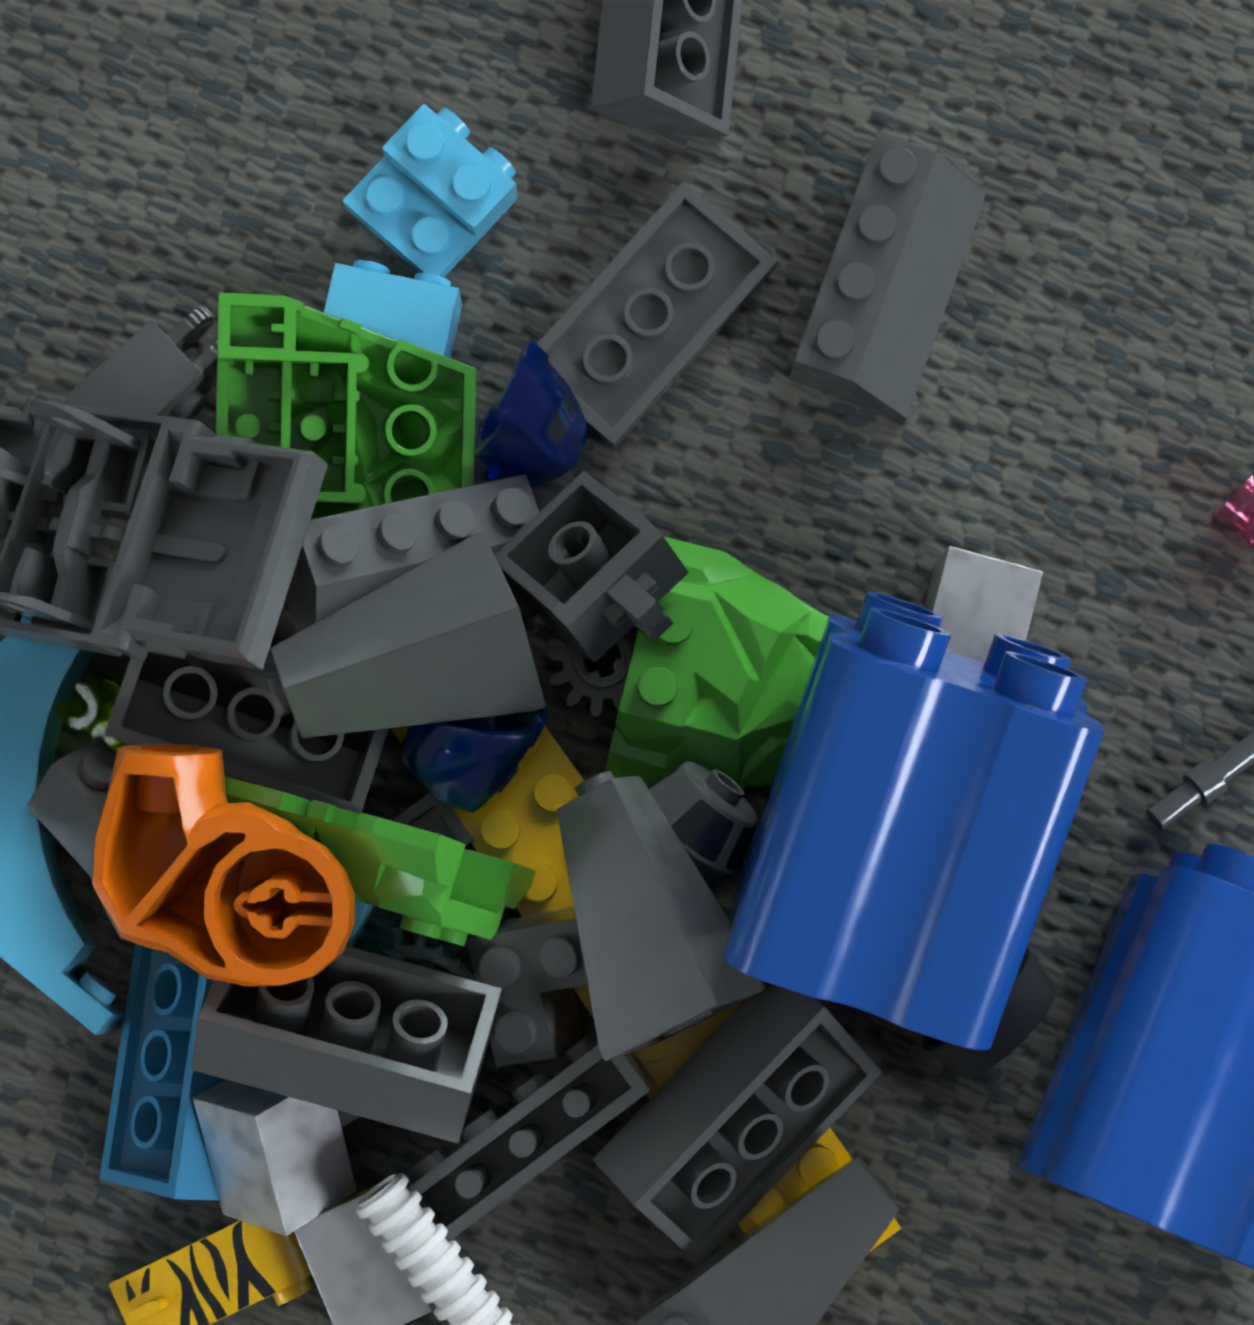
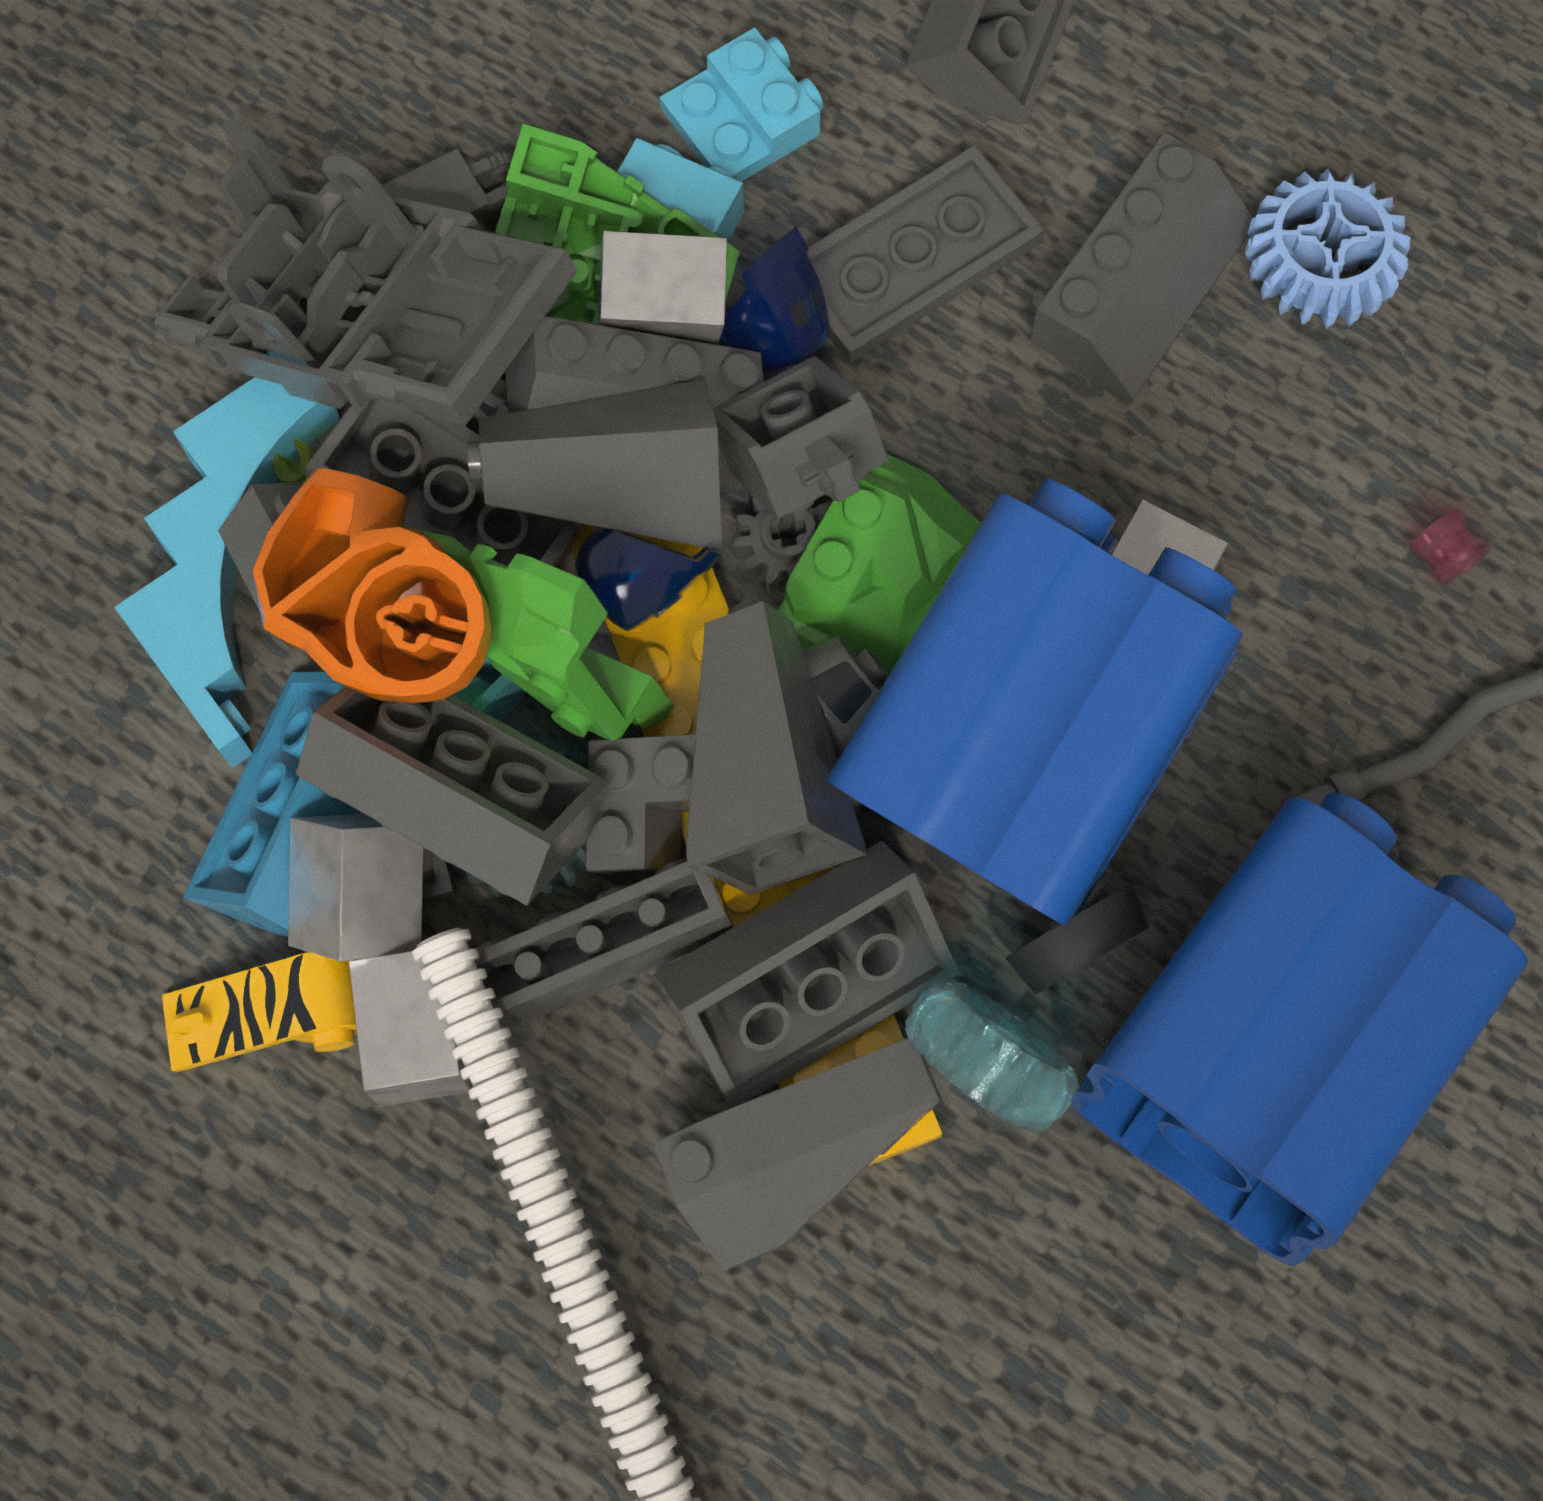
camera: 20 degrees right, 10 degrees down
(412, 442) = (663, 285): none -> flat silver piece
(936, 1156) = (991, 1055): none -> clear light blue gear
(1059, 162) = (1303, 268): none -> light blue gear

